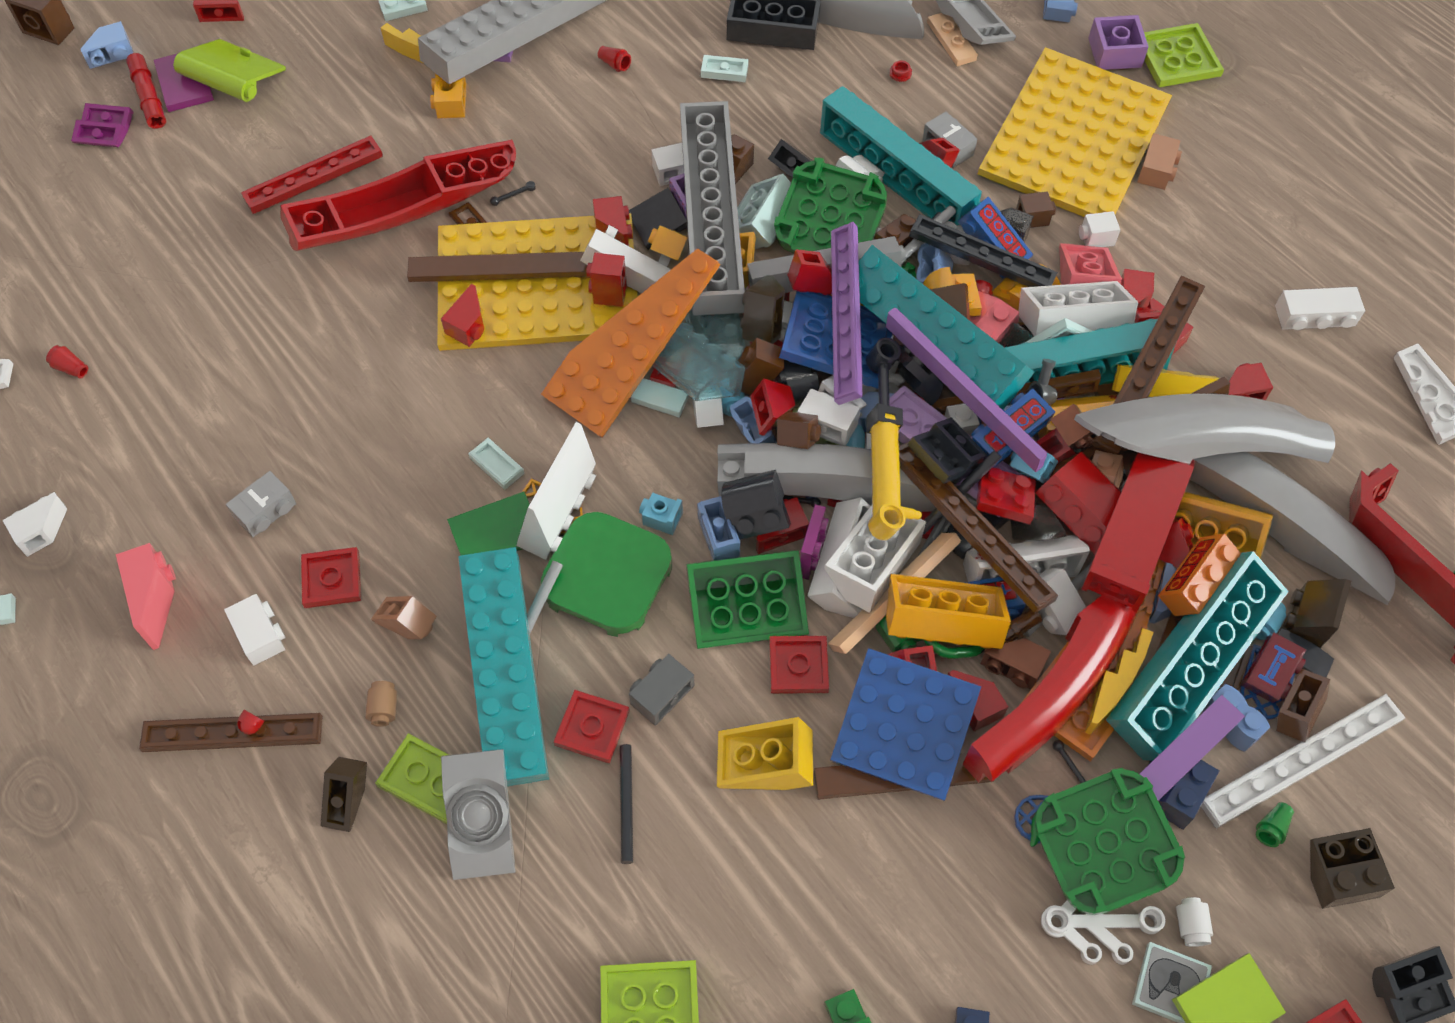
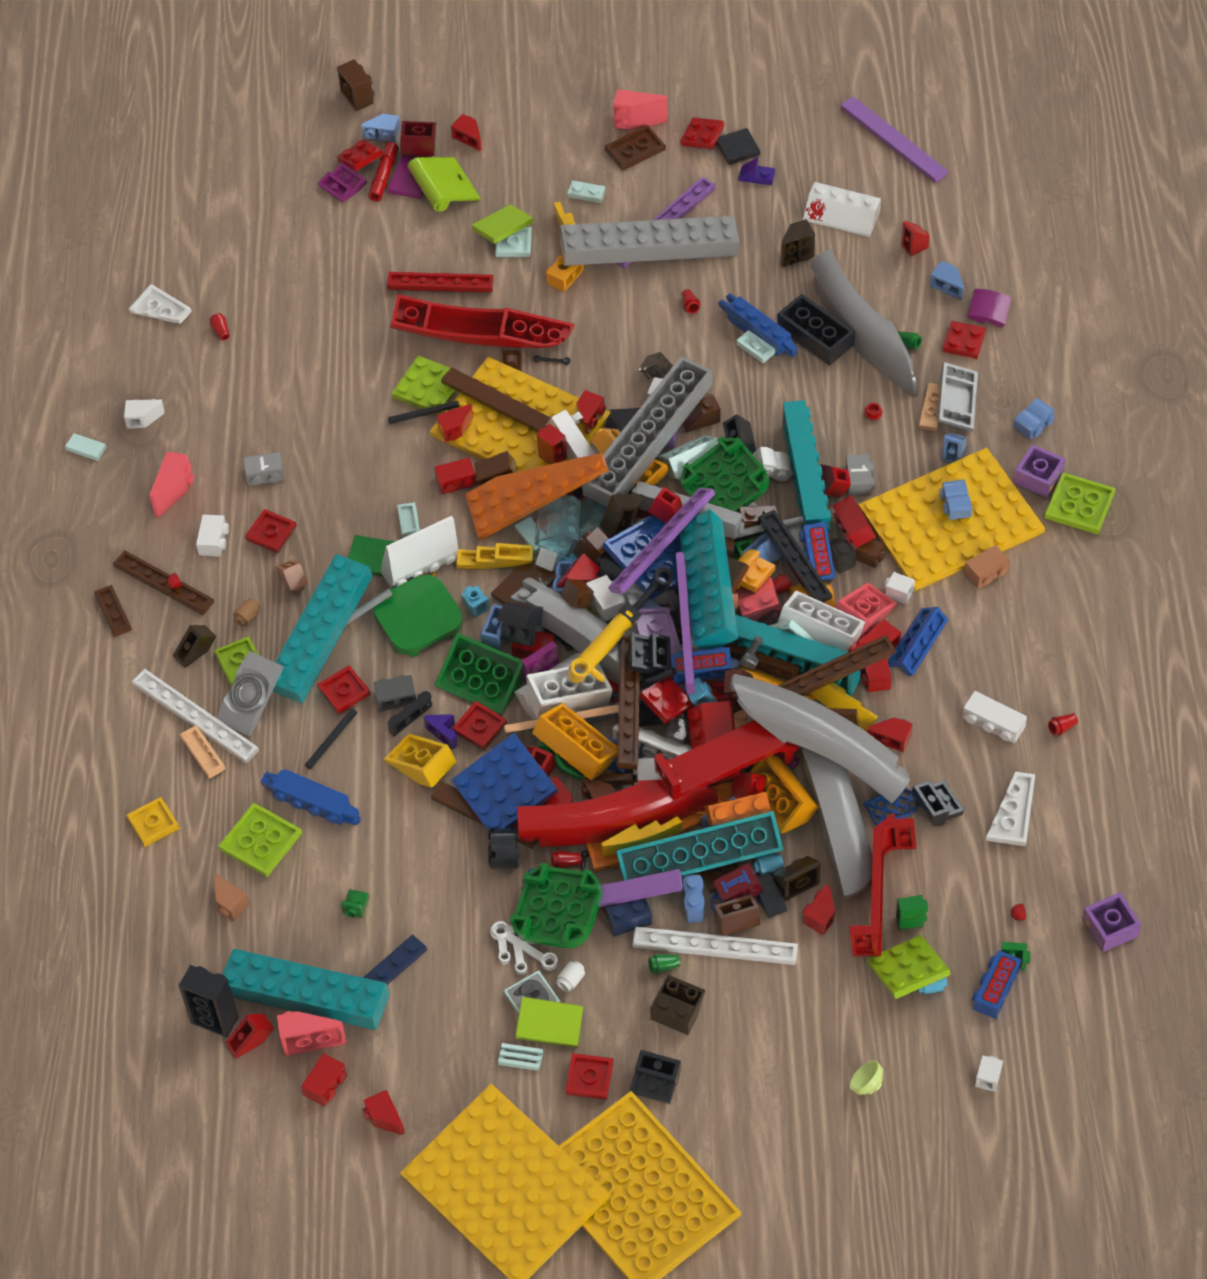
camera: 40 degrees right, 5 degrees down
(102, 85) = (360, 155): none -> red plate
(163, 34) = (418, 138): none -> dark red brick
(187, 815) = (113, 610): none -> reddish brown tile
(336, 78) = (502, 223): none -> lime tile
(363, 92) = (516, 244): none -> light aqua tile
(387, 299) = (423, 385): none -> lime plate
(411, 328) = (423, 412): none -> black bar
(416, 892) = (195, 715): none -> white tile
(469, 938) = (202, 752): none -> light nougat plate
(513, 379) = (455, 475): none -> red brick
(556, 343) = (494, 466): none -> reddish brown brick
(641, 447) = (495, 557): none -> yellow slope
(642, 137) = (655, 366): none -> clear smoke slope
(669, 903) = (311, 796): none -> blue hinge
(693, 42) = (749, 318): none -> blue hinge
(697, 461) = (515, 580): none -> reddish brown tile
(701, 702) = (410, 713): none -> black hinge
(752, 700) = (441, 727): none -> dark purple slope
(973, 808) = (503, 848): none -> black brick
(1002, 184) = (852, 522): none -> red brick
(1017, 63) = (953, 447): none -> medium blue slope
(1046, 771) = (565, 859): none -> red cone
(1076, 108) = (956, 499): none -> medium blue brick
(1170, 263) = (919, 641): none -> blue fence
(1330, 482) = (867, 804): none -> blue window
(1362, 433) = (937, 801): none -> black brick
(1375, 637) = (821, 912): none -> red slope
(1383, 278) = (1060, 724): none -> red cone

